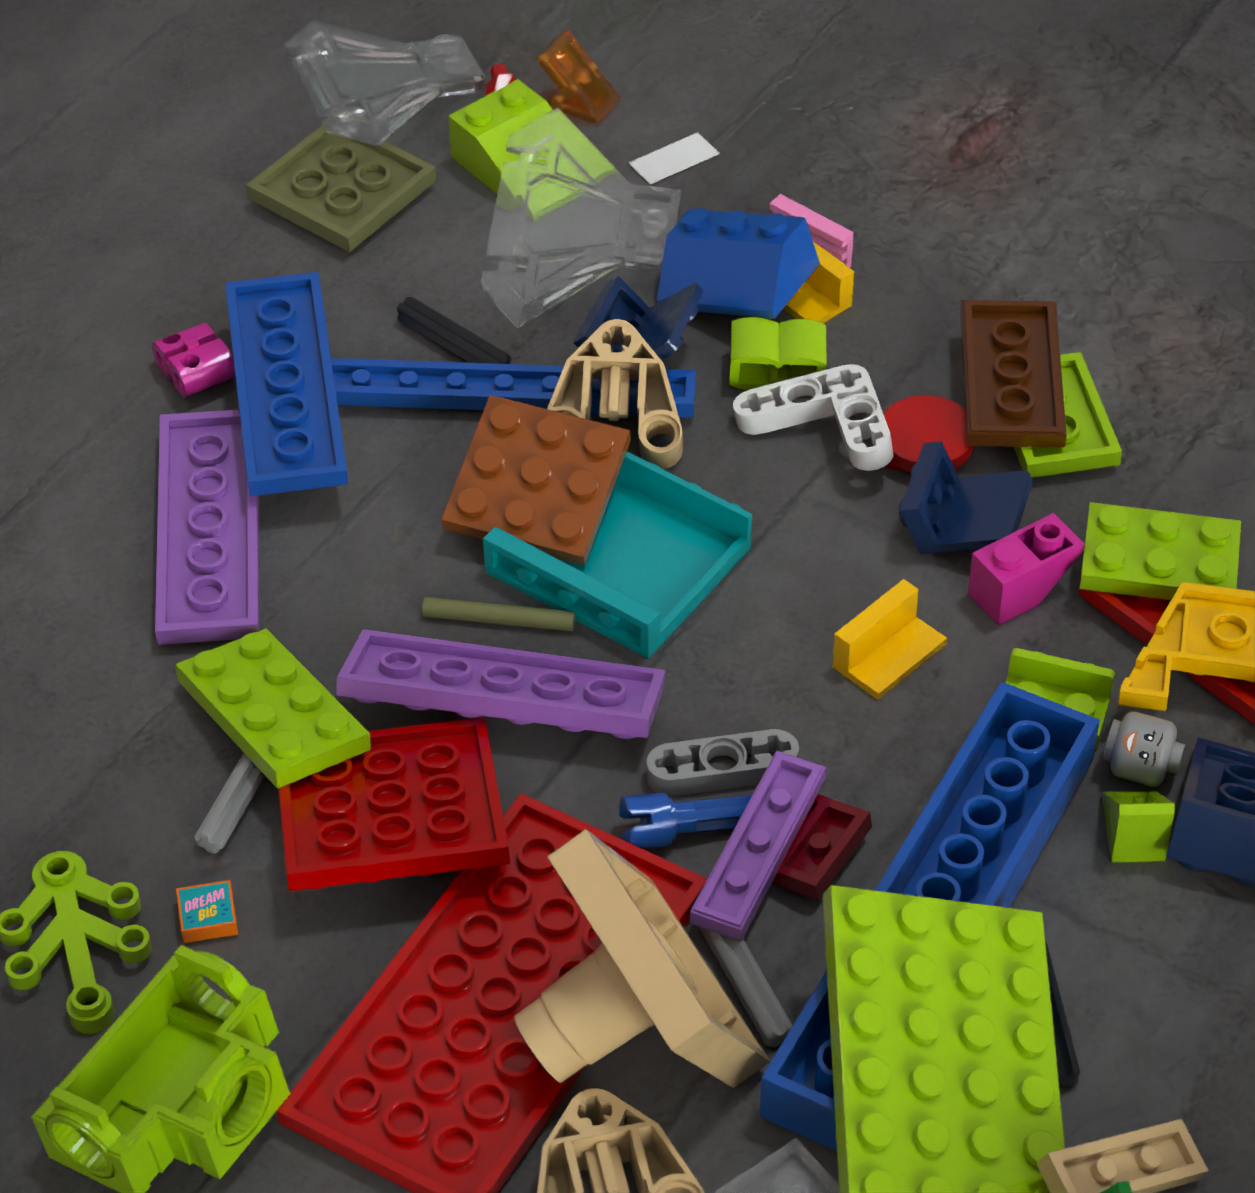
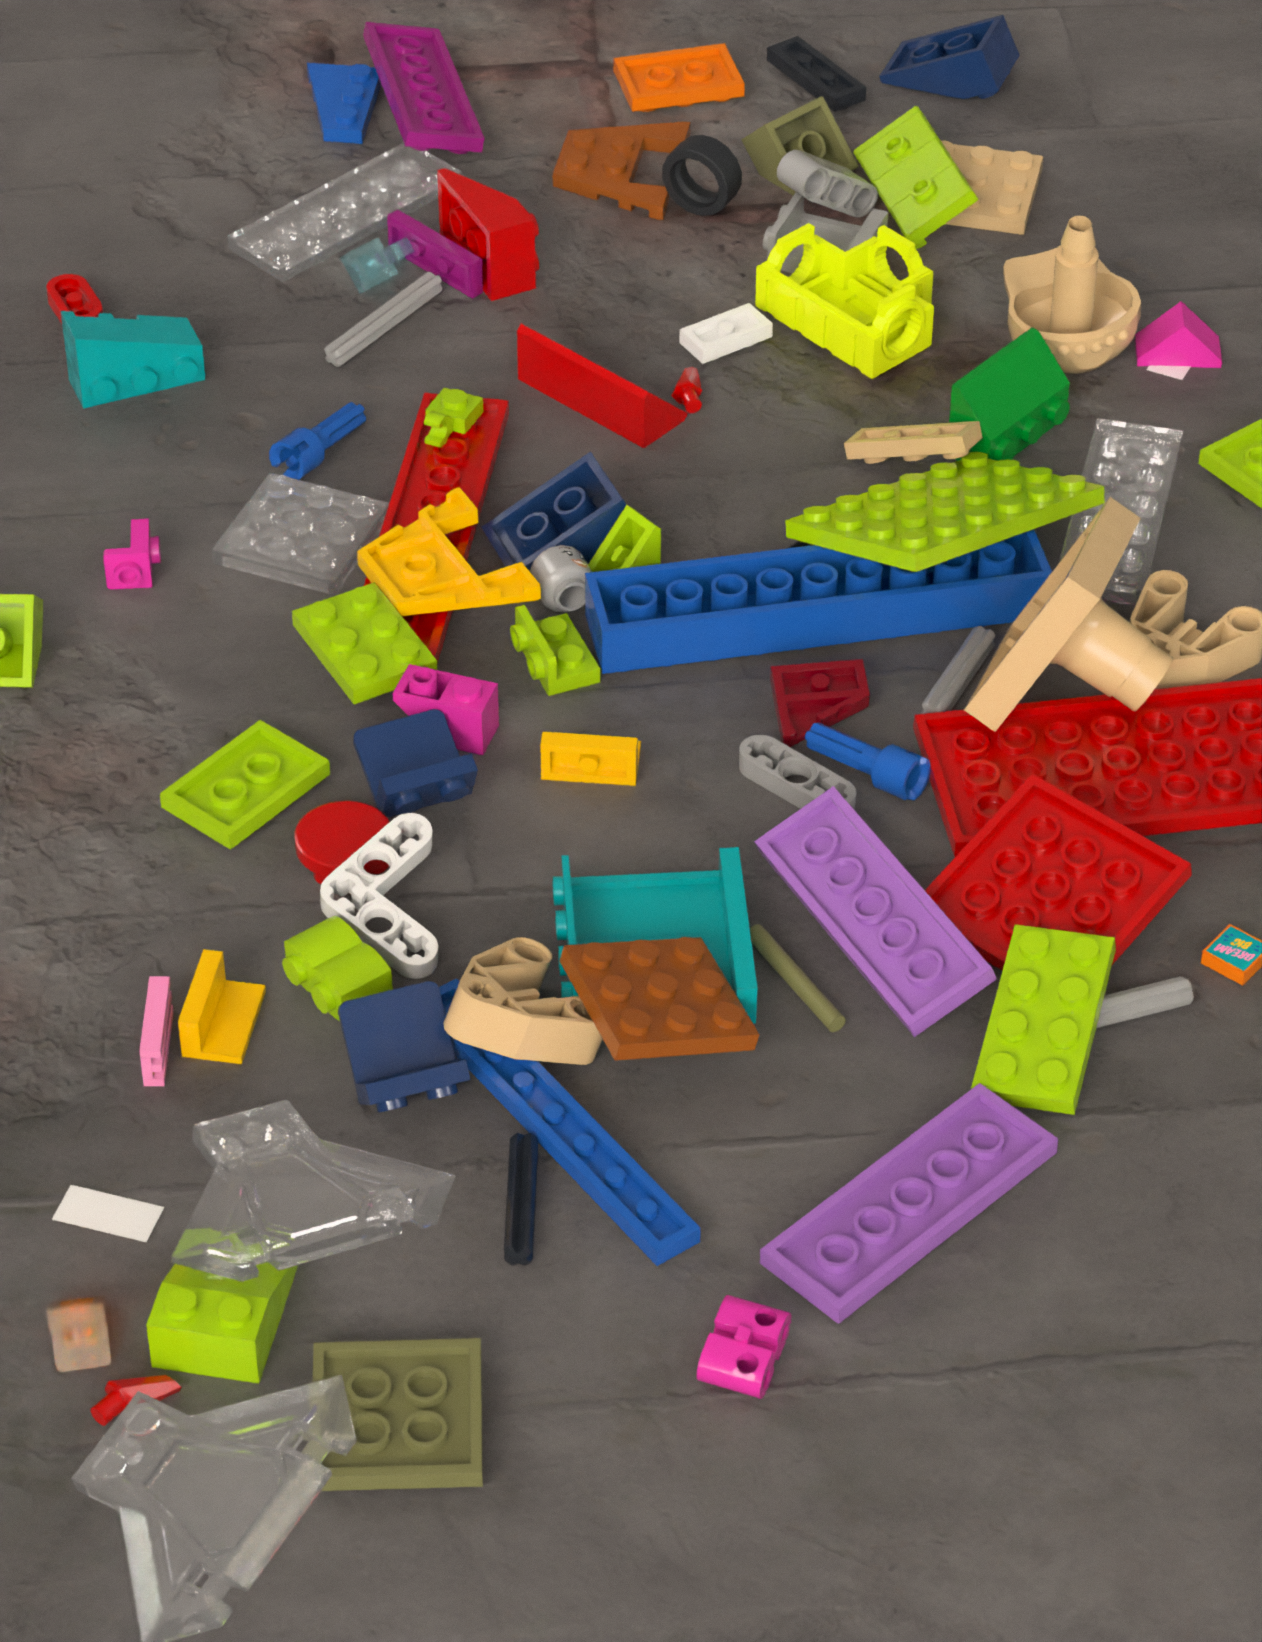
camera: 130 degrees left, 5 degrees down
(285, 384) = (720, 1228): blue plate -> none
(739, 260) = (271, 1027): blue slope -> none
(758, 846) = (860, 699): medium lavender tile -> none
(1012, 374) = (232, 809): reddish brown tile -> none

